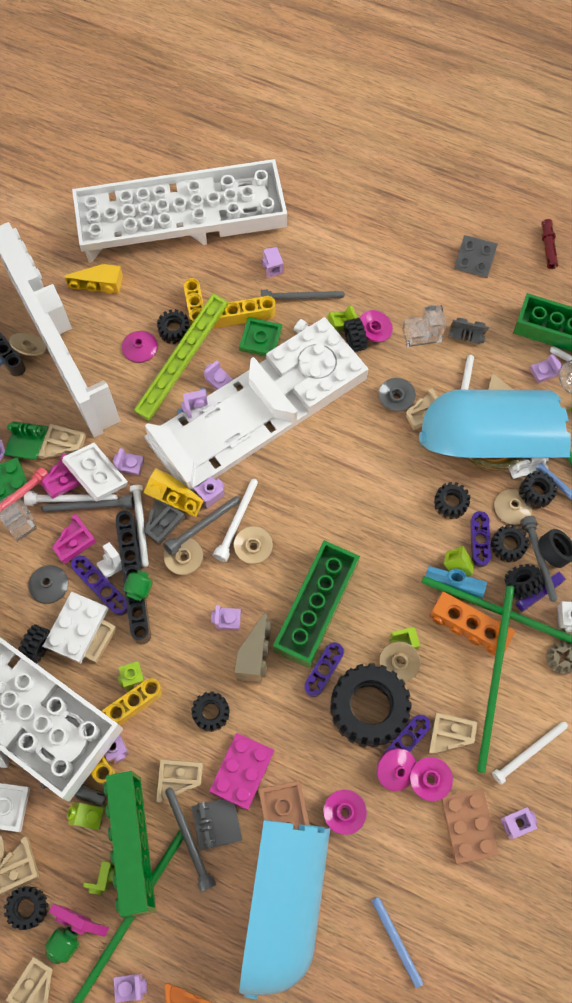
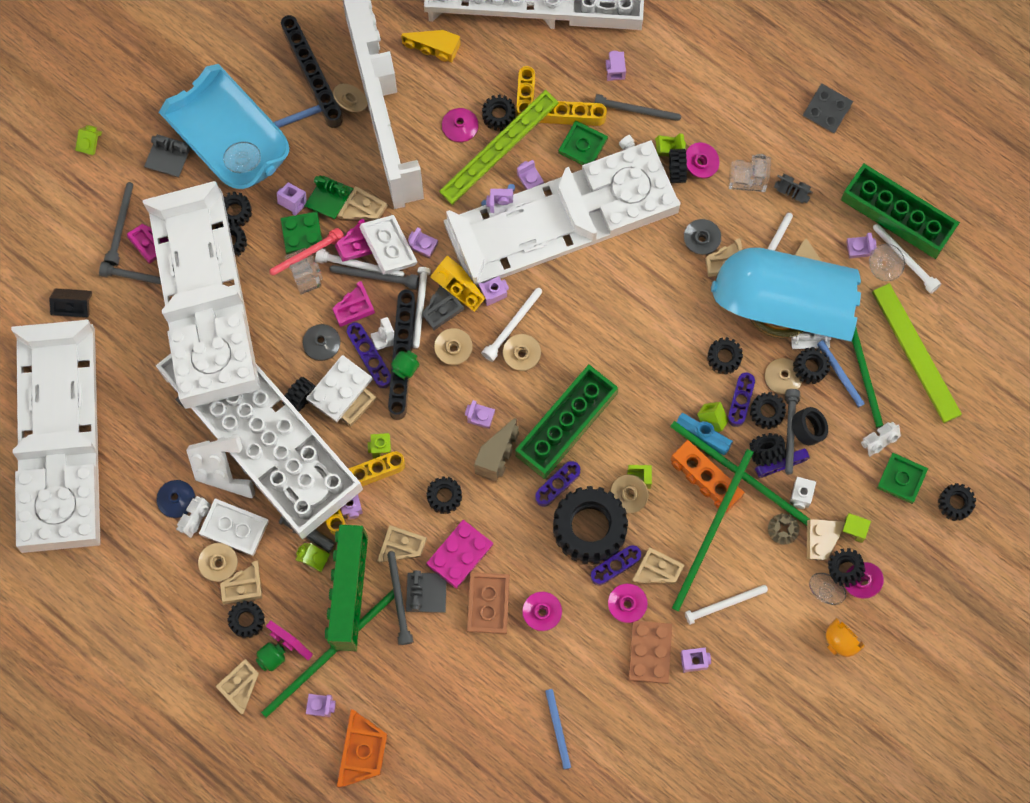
camera: 15 degrees right, 5 degrees up
(104, 879) = (319, 611): lime bracket -> none
(172, 545) = (446, 334): dark grey piece -> none
(284, 907) = (467, 671): medium azure panel -> none
(389, 766) = (592, 581): dark pink dish -> none
(549, 241) = (911, 104): dark red pin -> none

